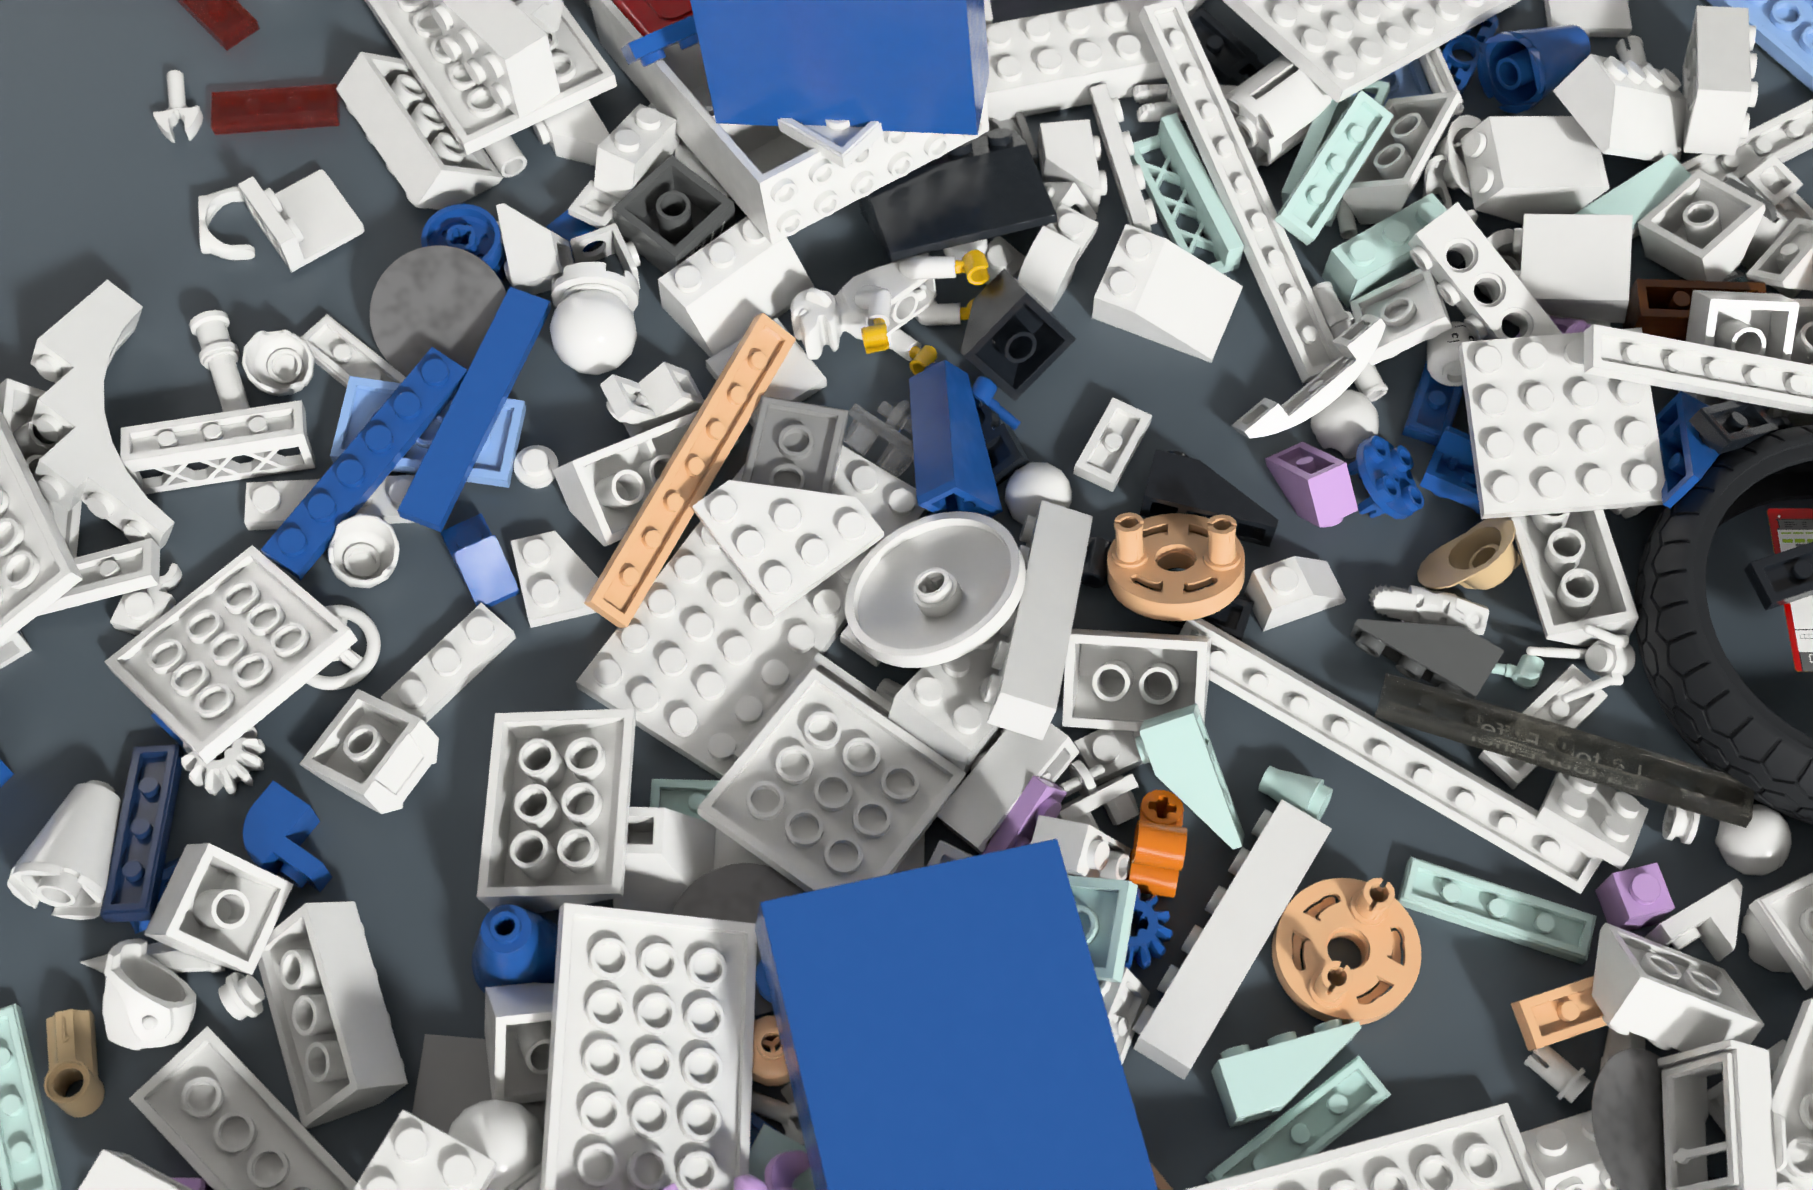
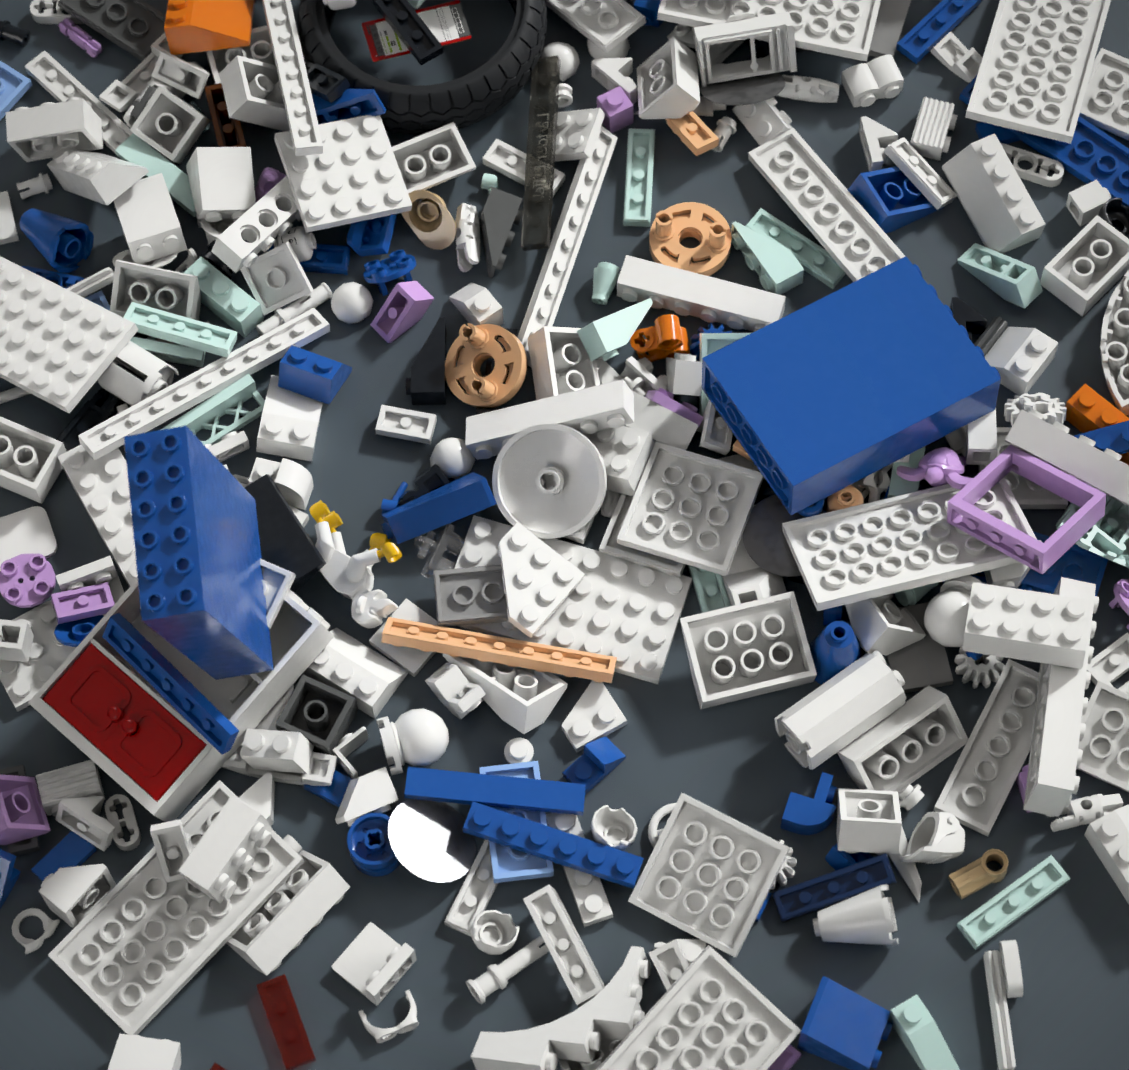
camera: 100 degrees left, 0 degrees up
(373, 752) = (741, 781): white slope -> none
(410, 922) = (841, 710): none -> white brick
(451, 664) = (669, 759): white plate -> none
(1012, 335) = (351, 487): black slope -> none
(1229, 334) = (312, 374): none -> blue slope
(1356, 346) = (340, 314): white slope -> none
(1608, 658) = (475, 144): white plant -> none

